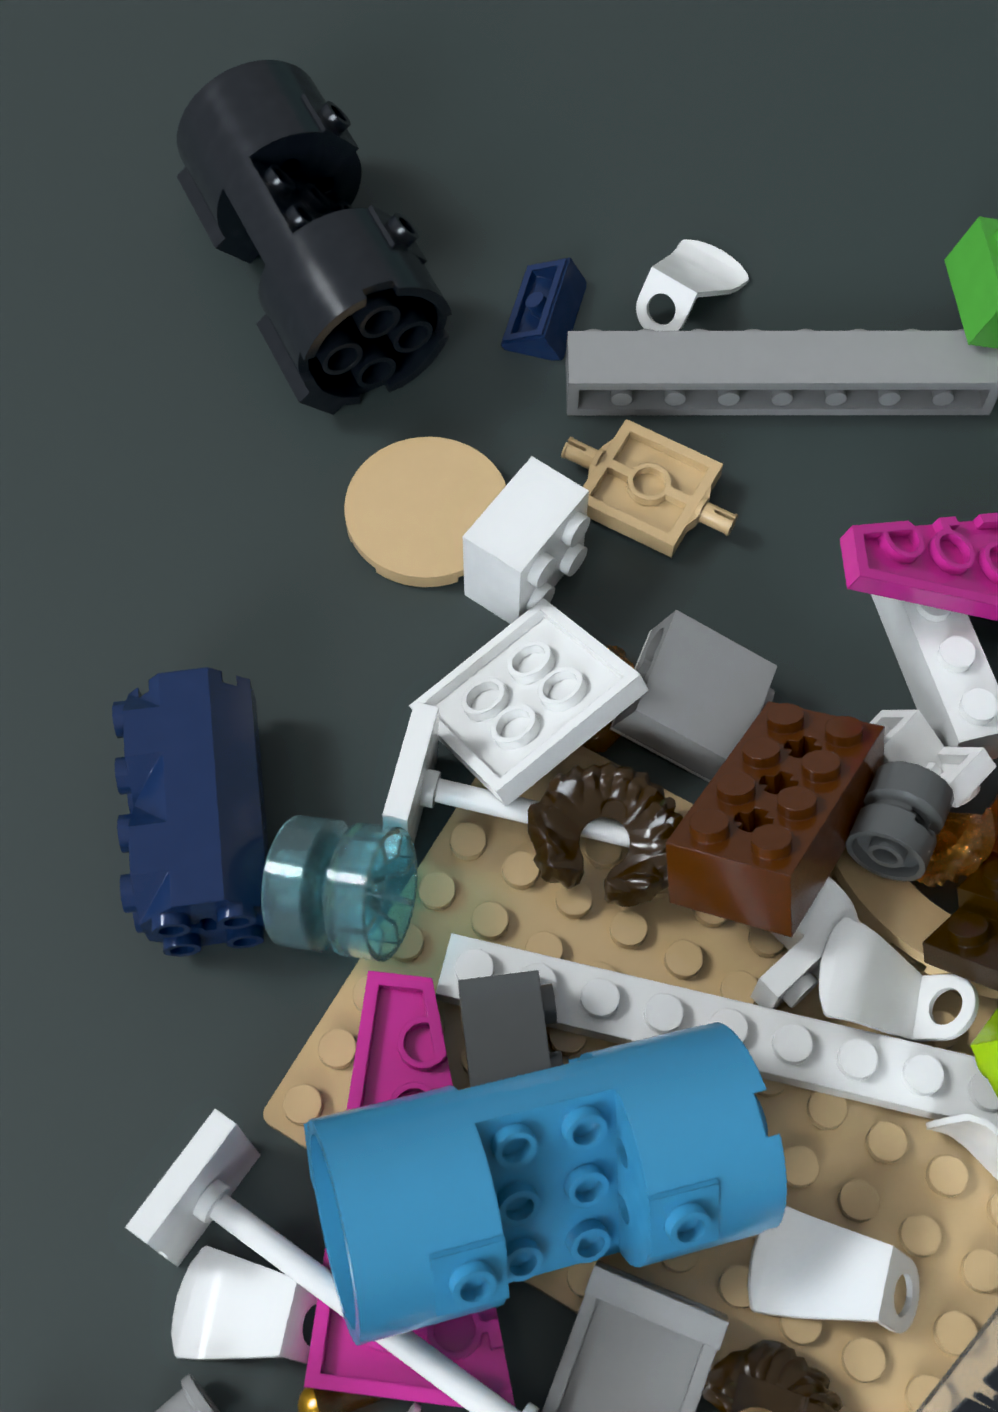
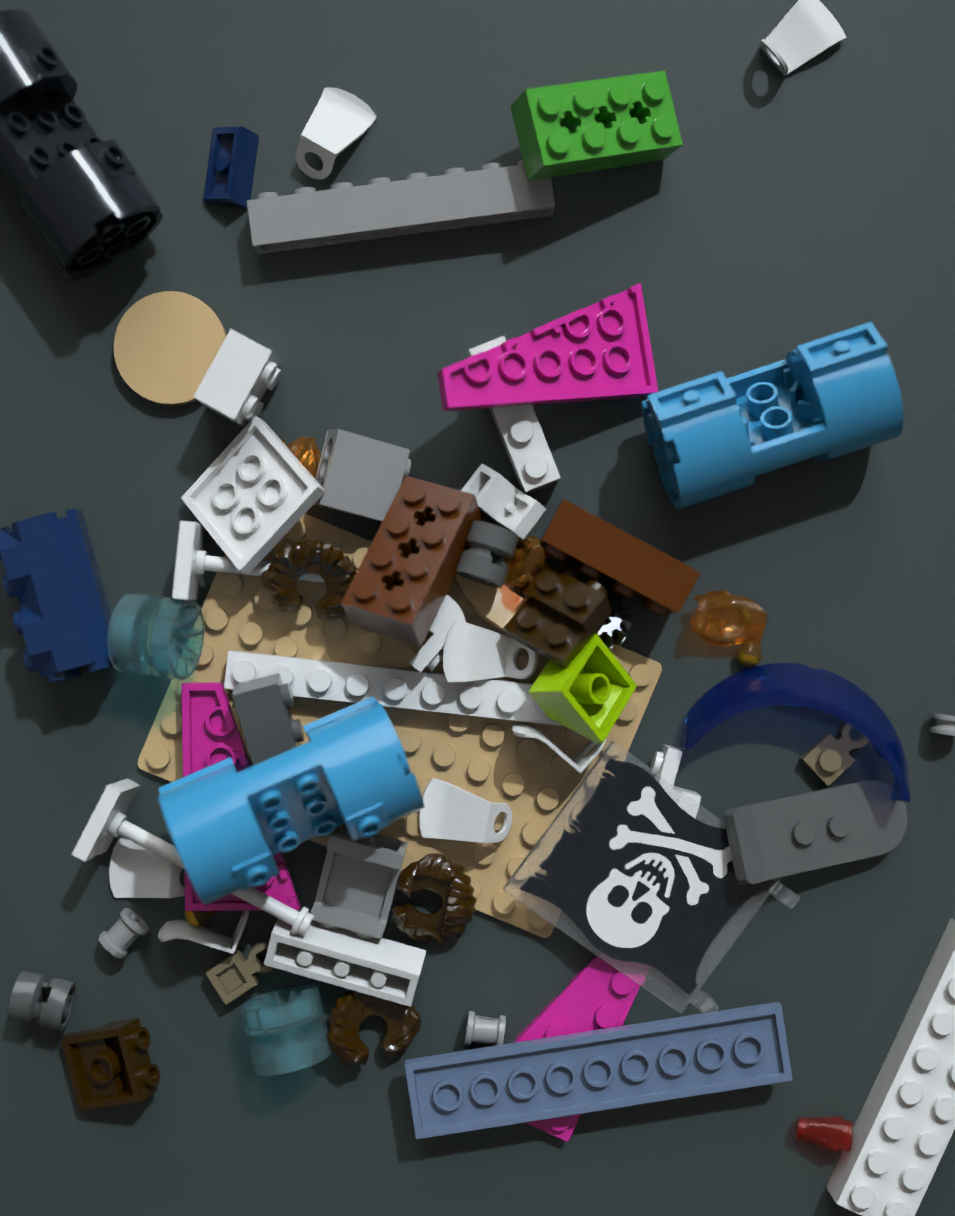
camera: 10 degrees left, 25 degrees up
(650, 487) = (318, 313): tan plate -> none

